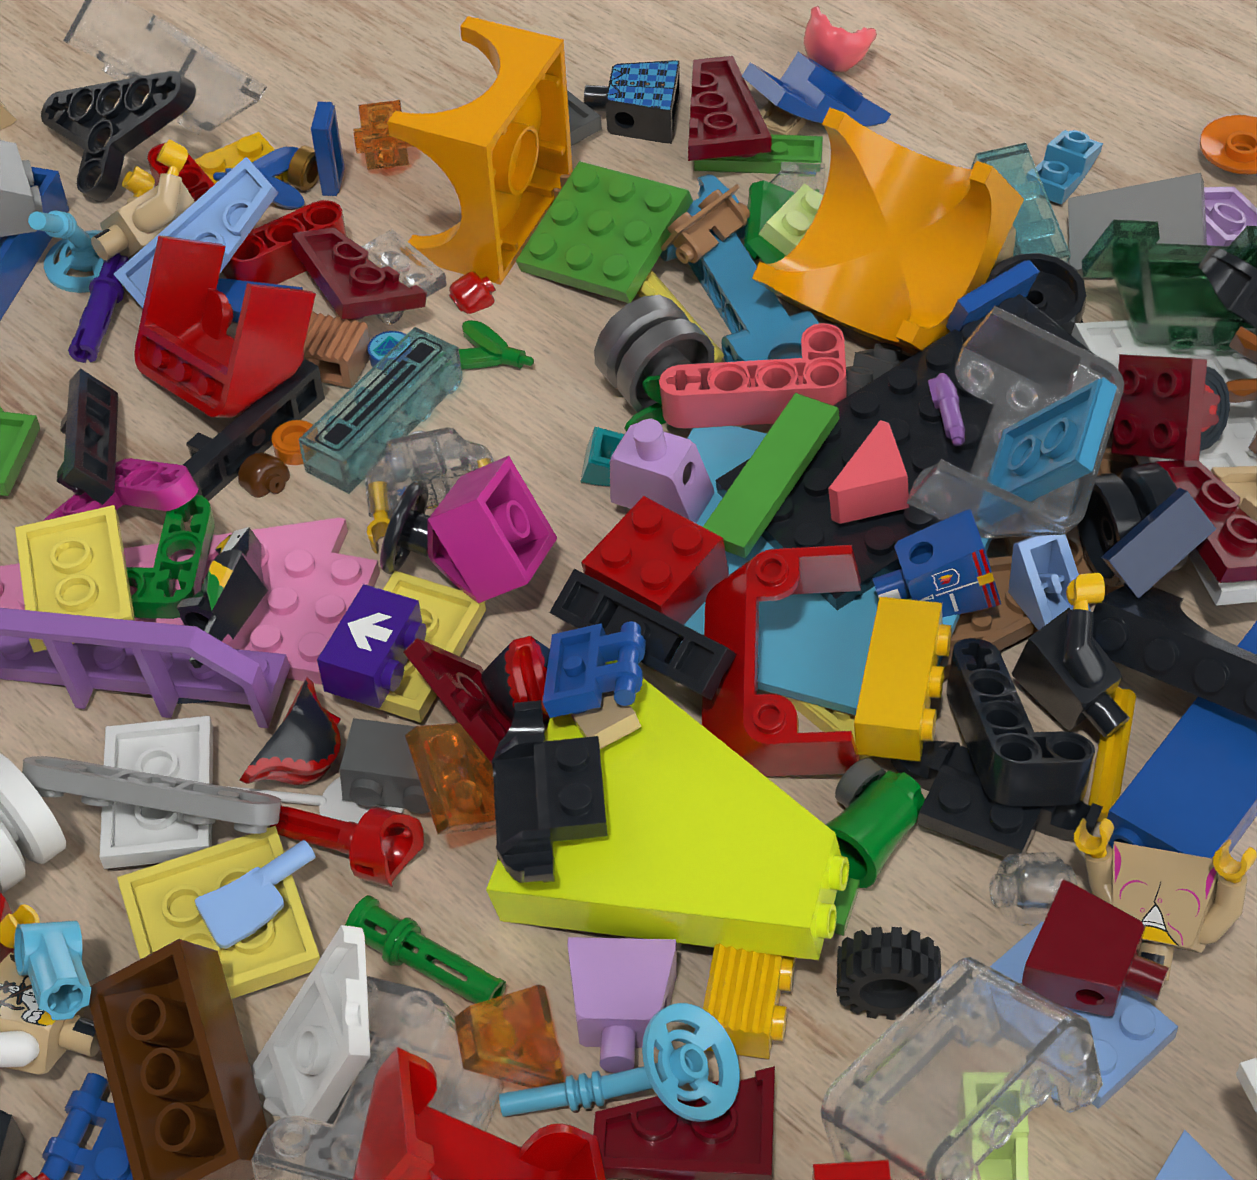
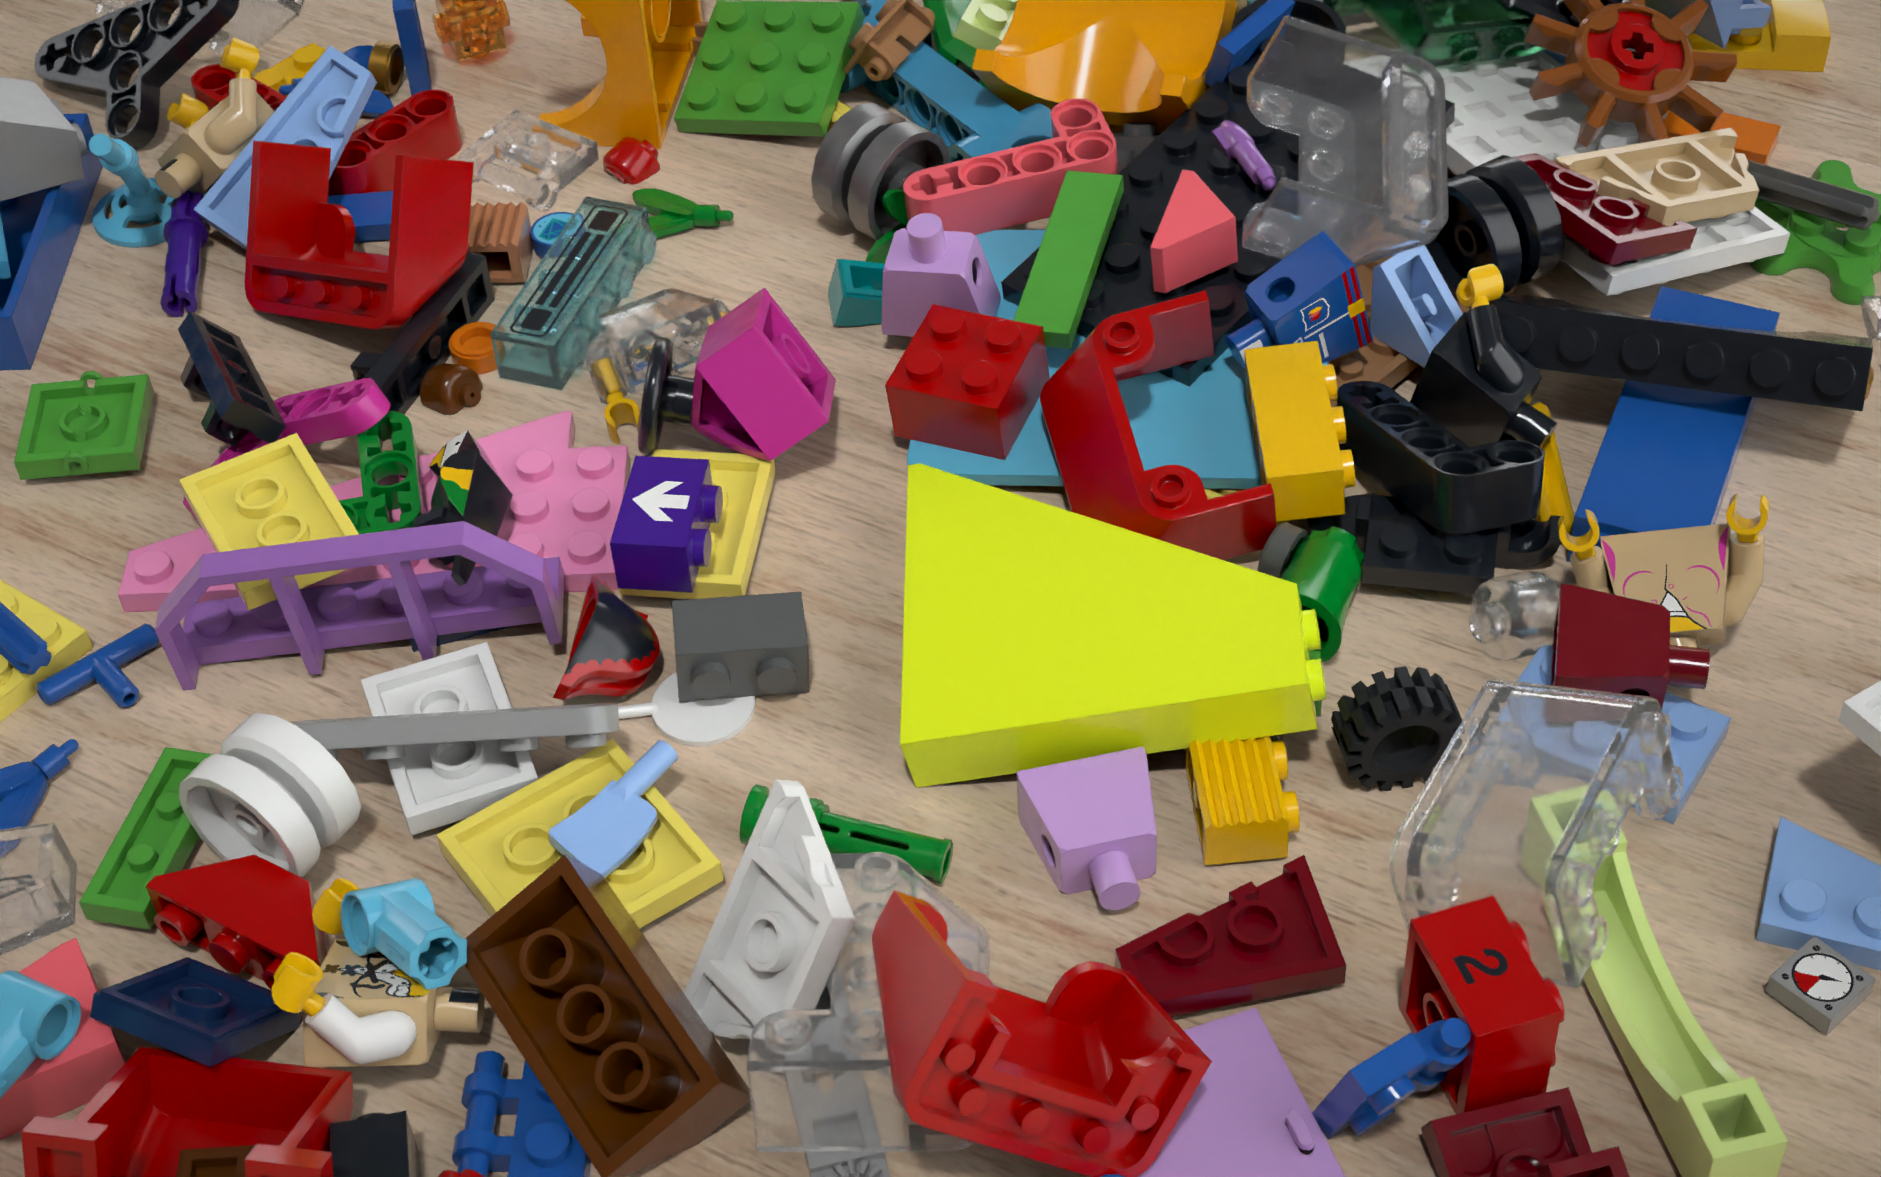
camera: 15 degrees left, 5 degrees down
(351, 280) = (500, 169): dark red wing -> none
(375, 845) = (745, 736): red piece -> none
(453, 778) = (825, 639): clear orange wing -> none
(462, 692) = (822, 577): dark red wing -> none
(511, 1039) = (991, 896): clear orange wing -> none
(517, 675) = (861, 523): red hat -> none
(543, 794) = (937, 625): black plate -> none
(579, 672) = (939, 483): blue plate -> none
(608, 721) = (977, 535): tan tile -> none
(674, 1069) = (1197, 877): medium azure dish -> none
(696, 664) = (984, 443): black hinge -> none
(1053, 443) = (1399, 139): dark azure tile -> none
(1159, 542) = (1536, 231): dark blue tile -> none
(1169, 407) = (1492, 101): dark red plate -> none

